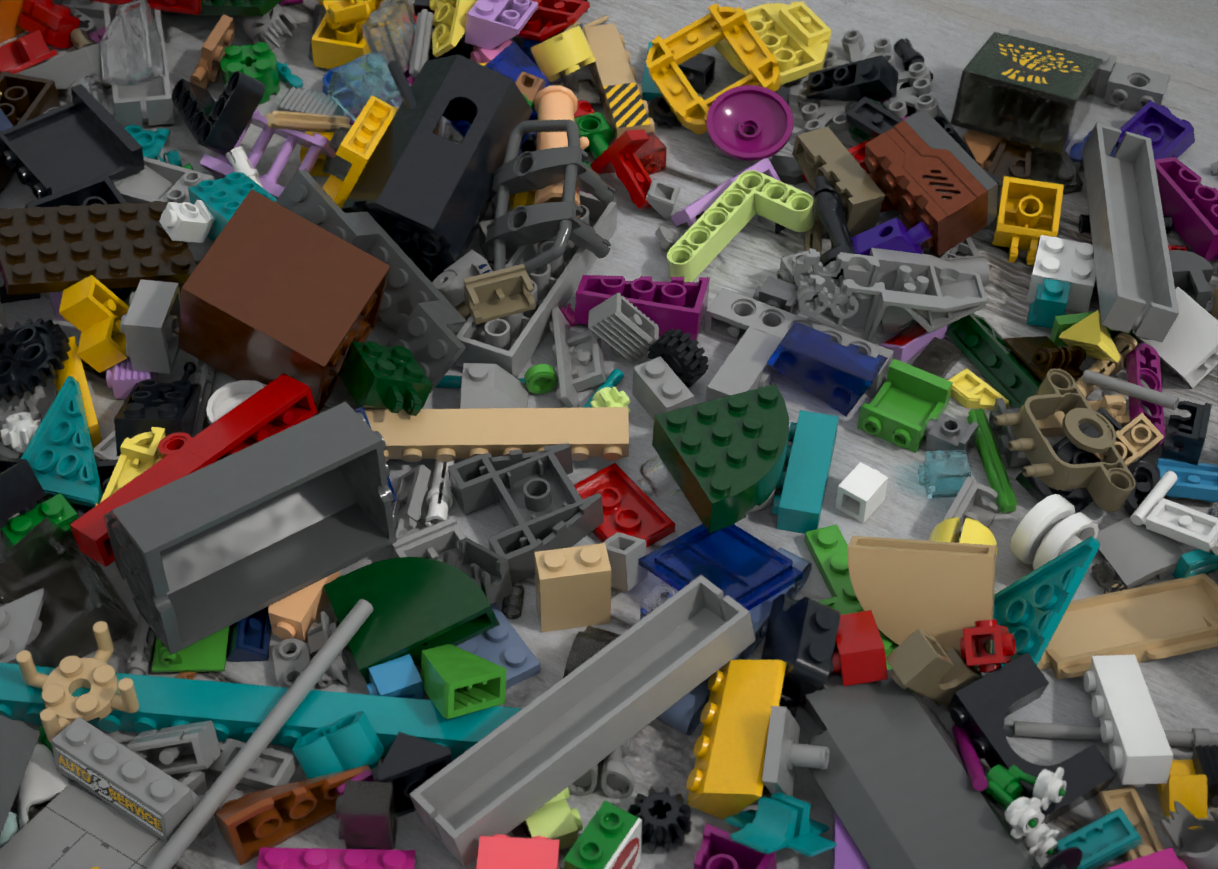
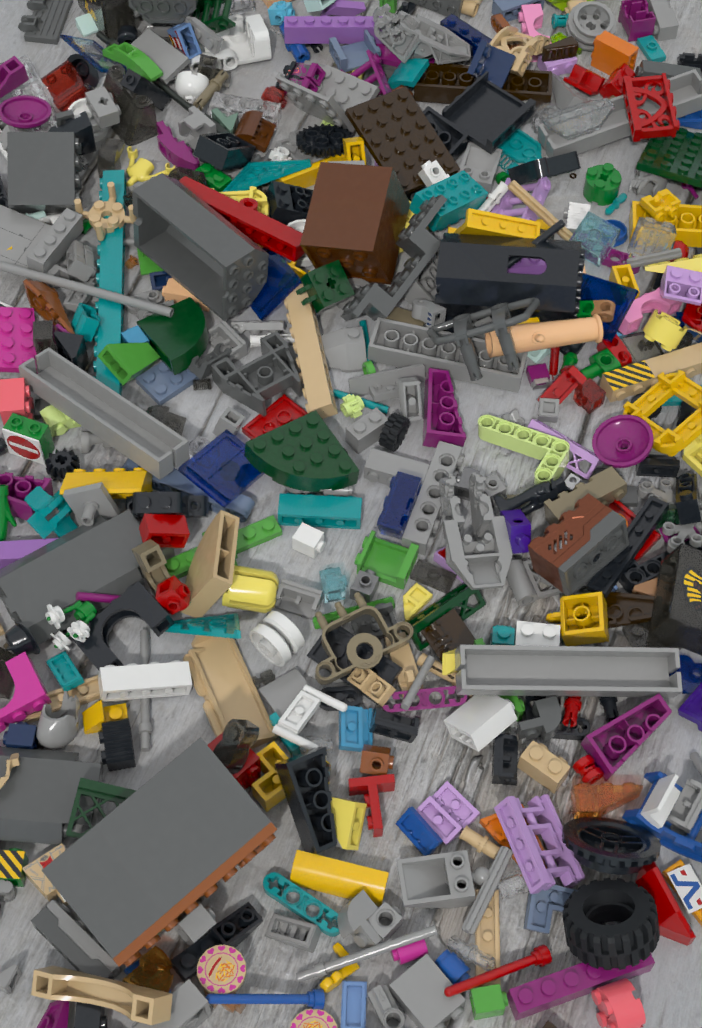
camera: 80 degrees right, 10 degrees up
(212, 52) = (619, 158): medium nougat plate -> none
(499, 294) = (411, 328): dark tan hinge -> none
(573, 587) = (200, 400): tan brick -> none

